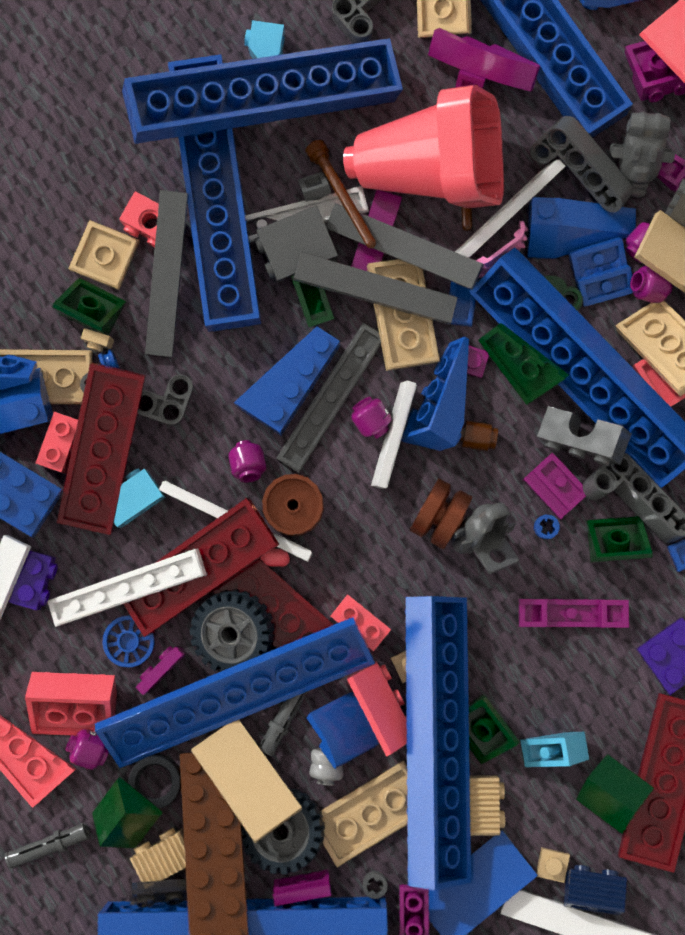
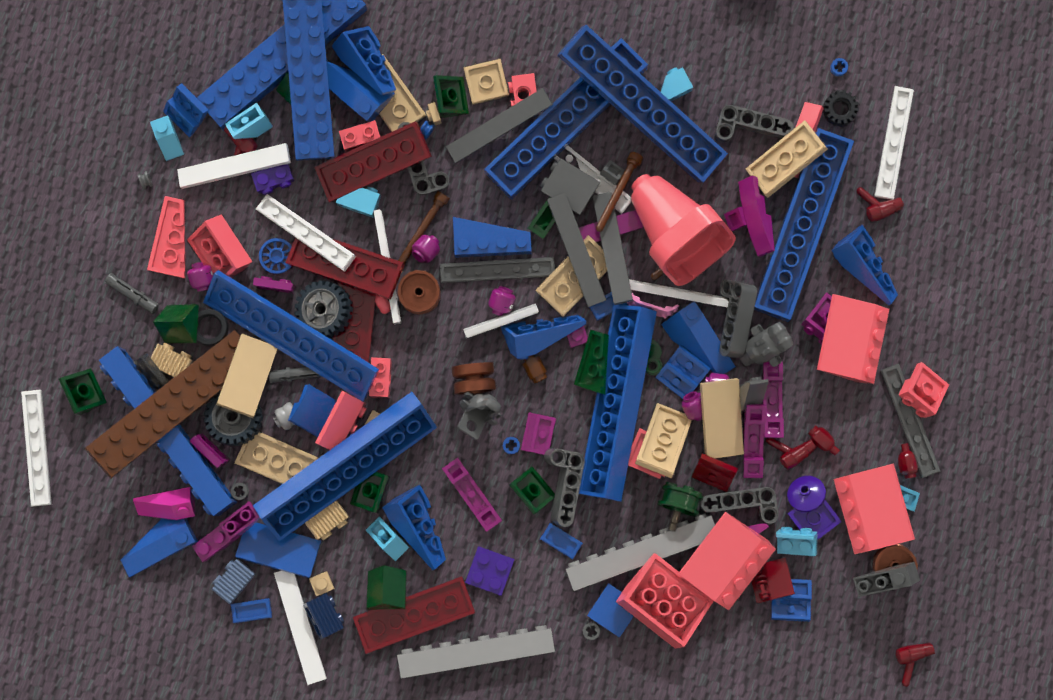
camera: 50 degrees right, 0 degrees up
(203, 406) = (439, 201): none -> reddish brown piece
(552, 705) = (411, 519): none -> blue wedge
(605, 443) = (579, 440): arch -> none

